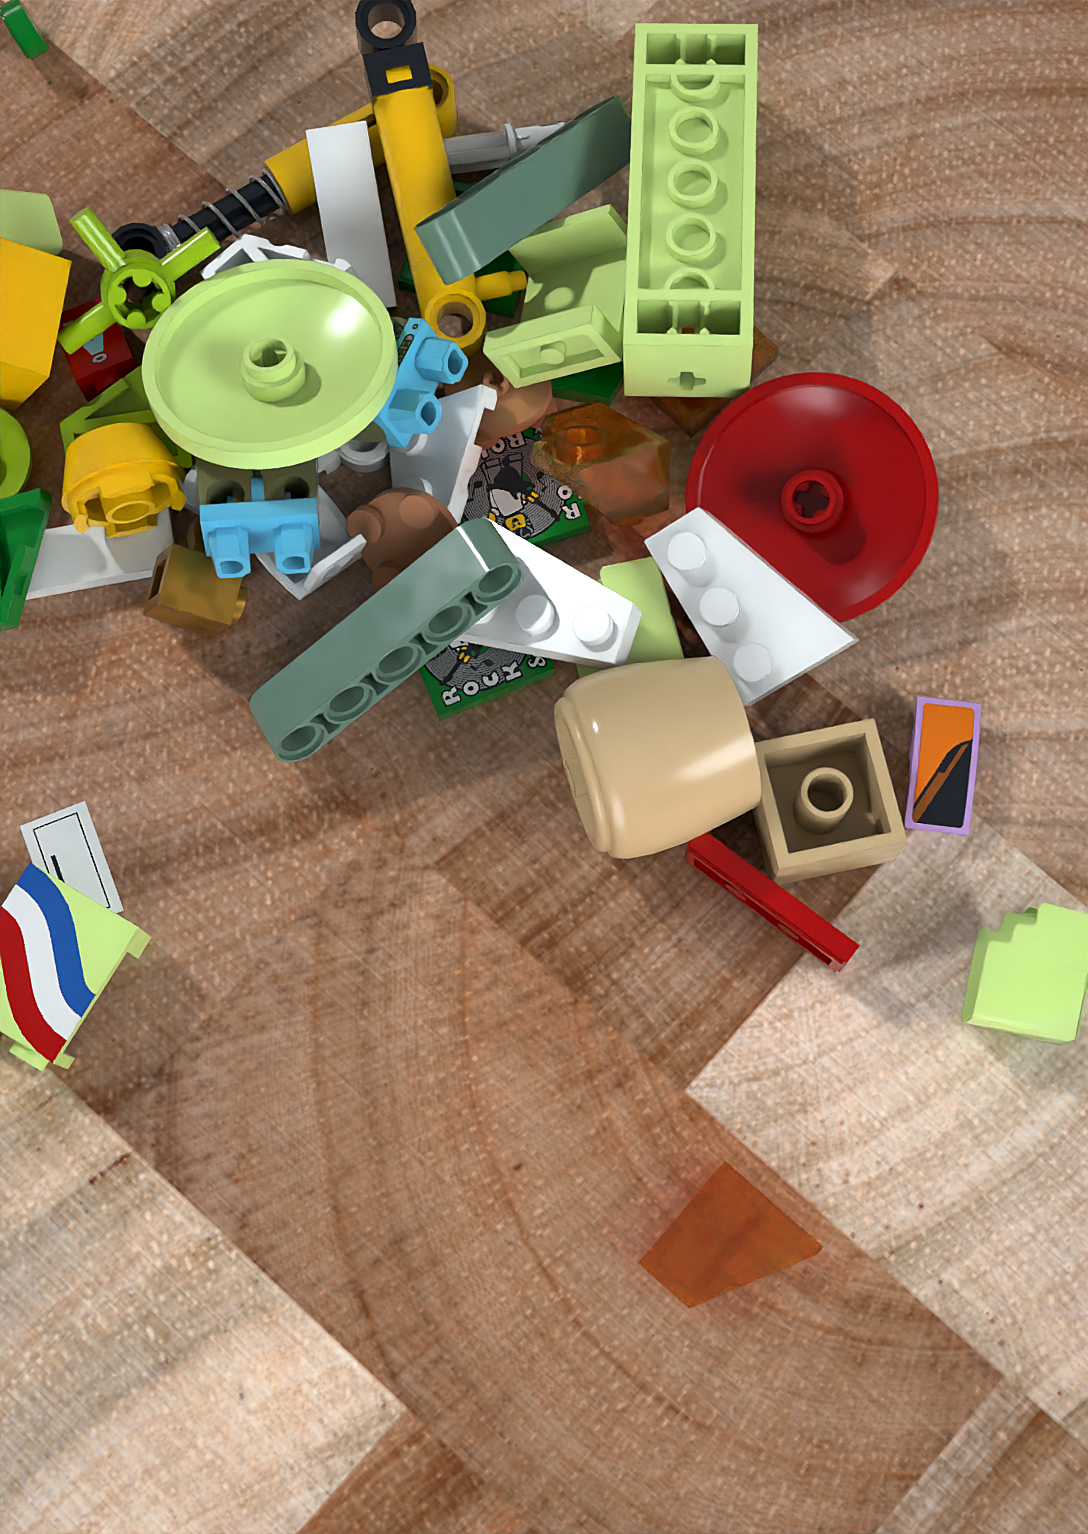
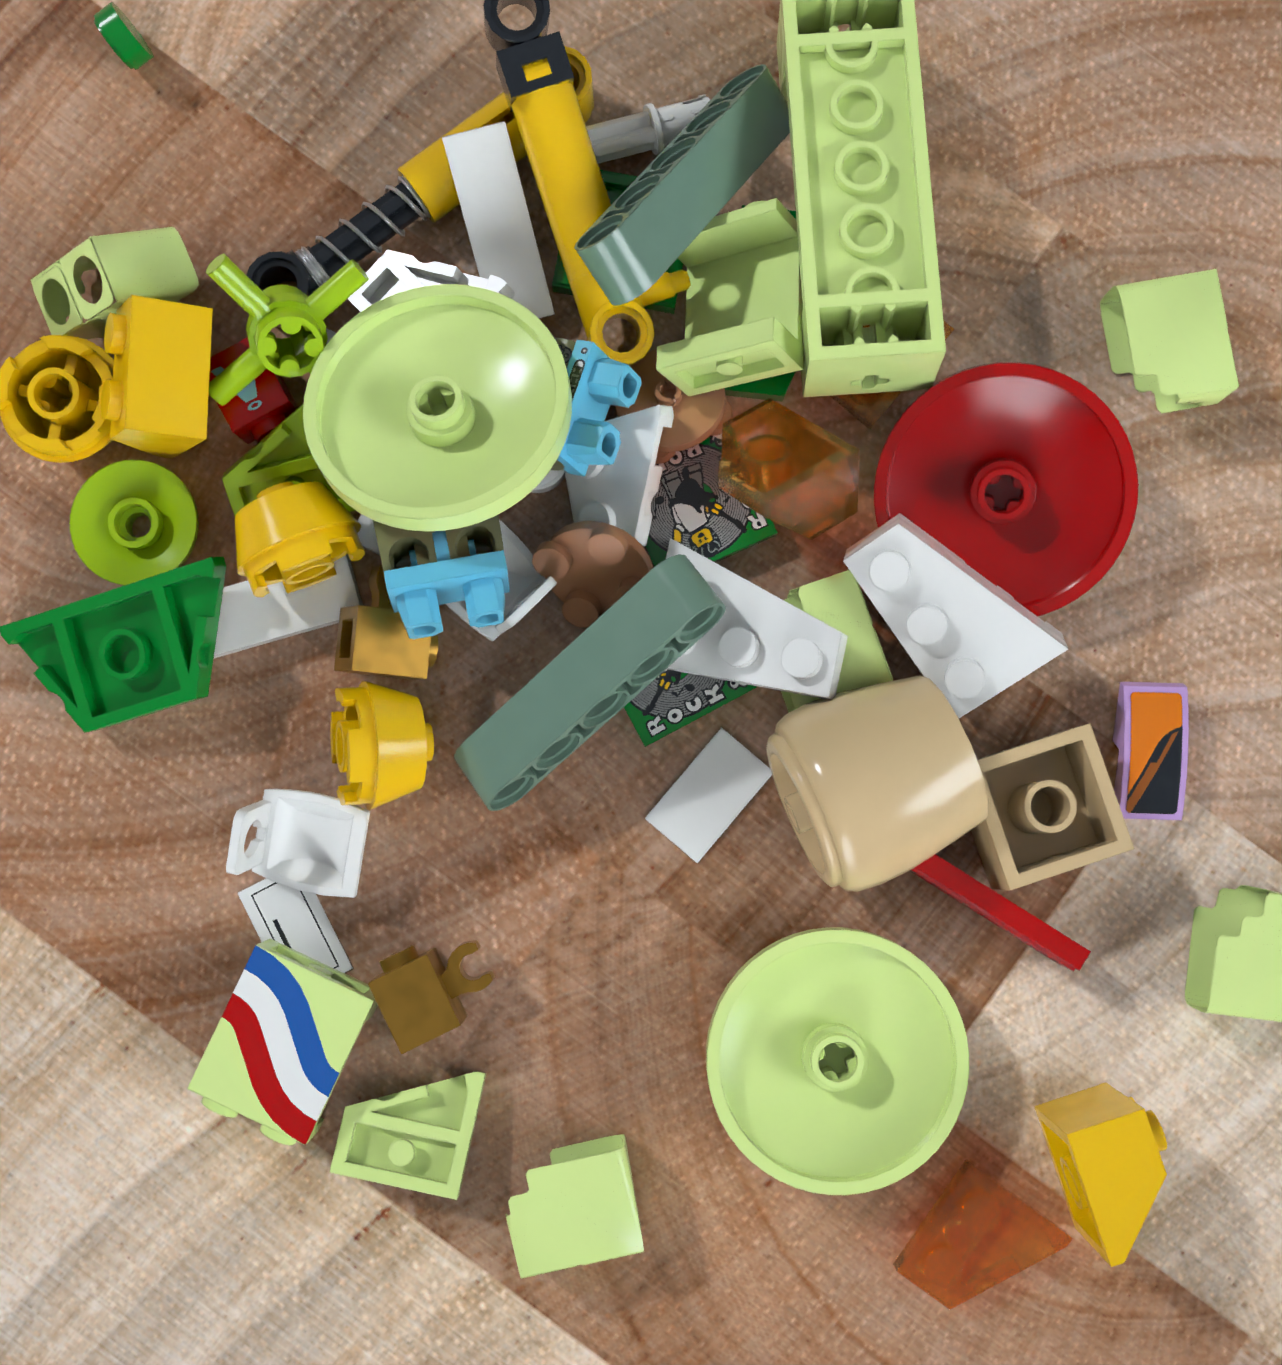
camera: 10 degrees left, 10 degrees up
(89, 773) = (301, 842): none -> white piece
(161, 1077) = (412, 1136): none -> yellowish green wing
(177, 683) = (379, 744): none -> yellow cone
(189, 936) = (422, 996): none -> pearl gold brick
(314, 1159) = (576, 1209): none -> yellowish green piece
(498, 773) = (709, 795): none -> white sticker
(594, 1033) = (837, 1061): none -> yellowish green dish
(855, 1156) = (1105, 1164): none -> yellow slope
(990, 376) = (1172, 339): none -> yellowish green piece

